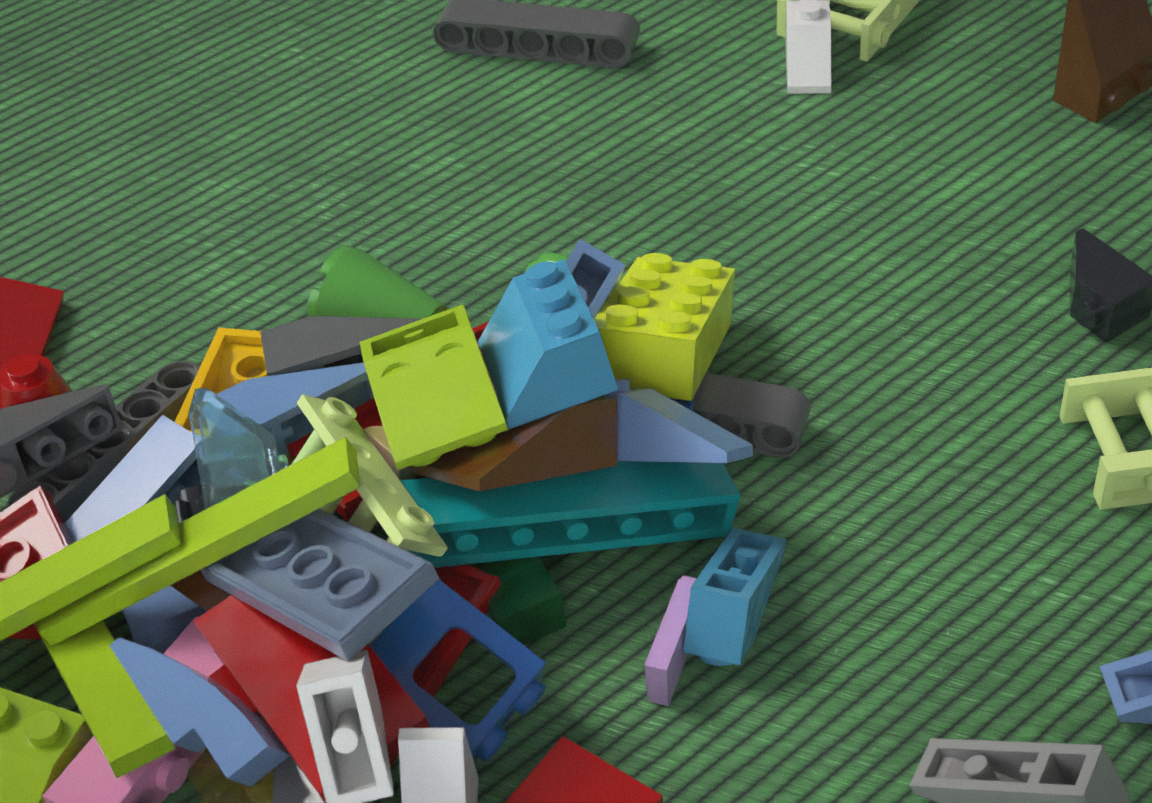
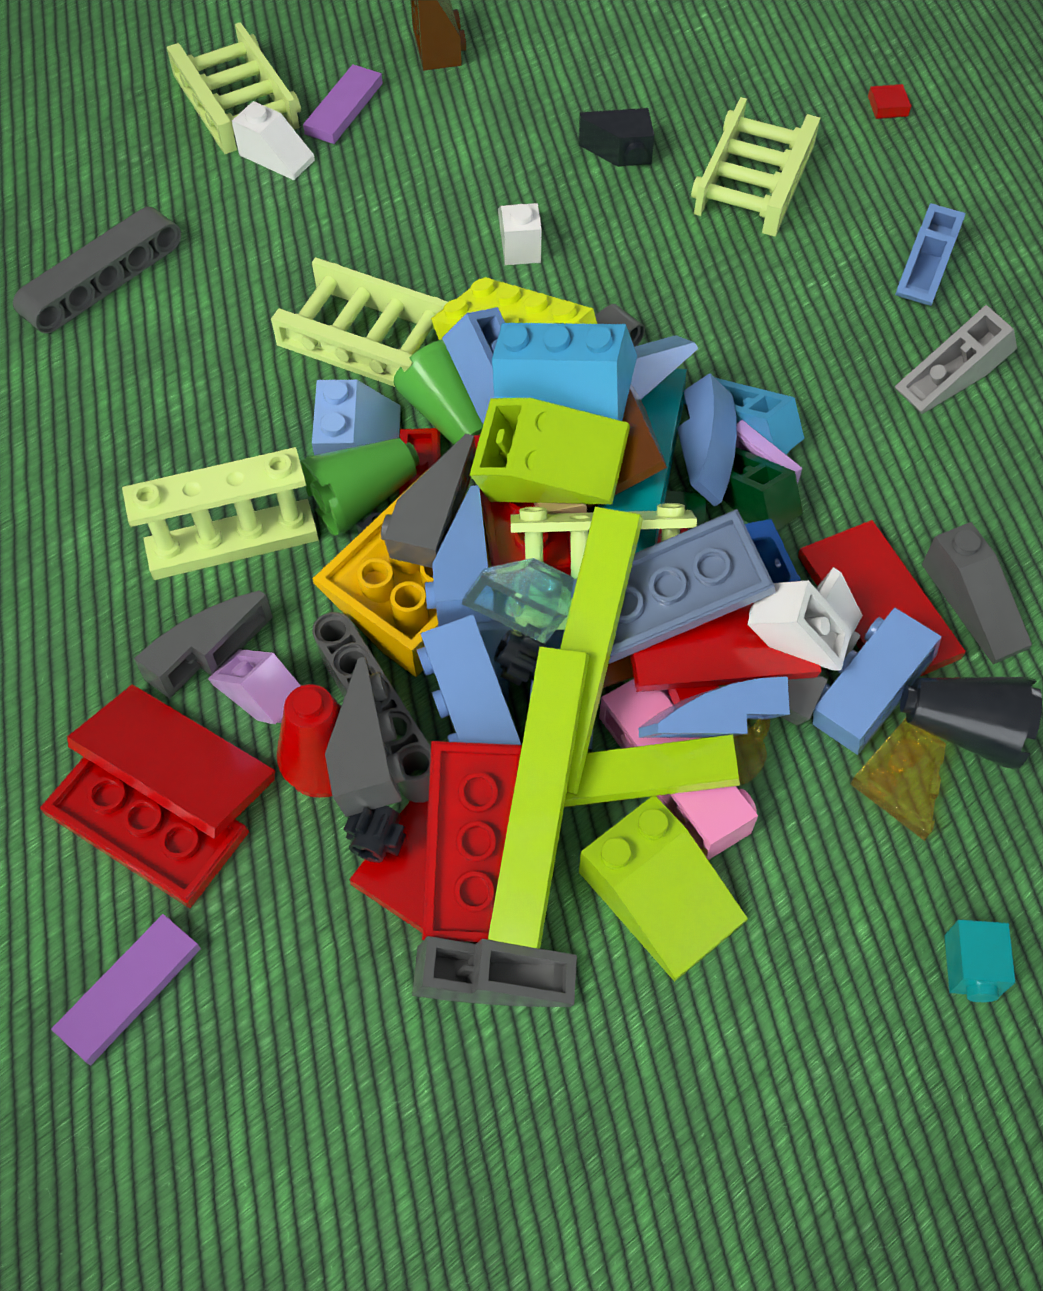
camera: 65 degrees left, 15 degrees up
(100, 361) = (256, 684): none -> lavender slope
(131, 310) = (203, 641): none -> dark grey slope
(265, 205) = (224, 539): none -> yellowish green fence
(461, 268) = (352, 416): none -> light blue slope
(571, 213) = (347, 350): none -> yellowish green fence
(613, 642) = (762, 490): none -> dark green slope
(633, 555) = (709, 437): none -> medium blue slope
(858, 274) = (520, 233): none -> white slope
(928, 69) = (343, 104): none -> medium lavender tile

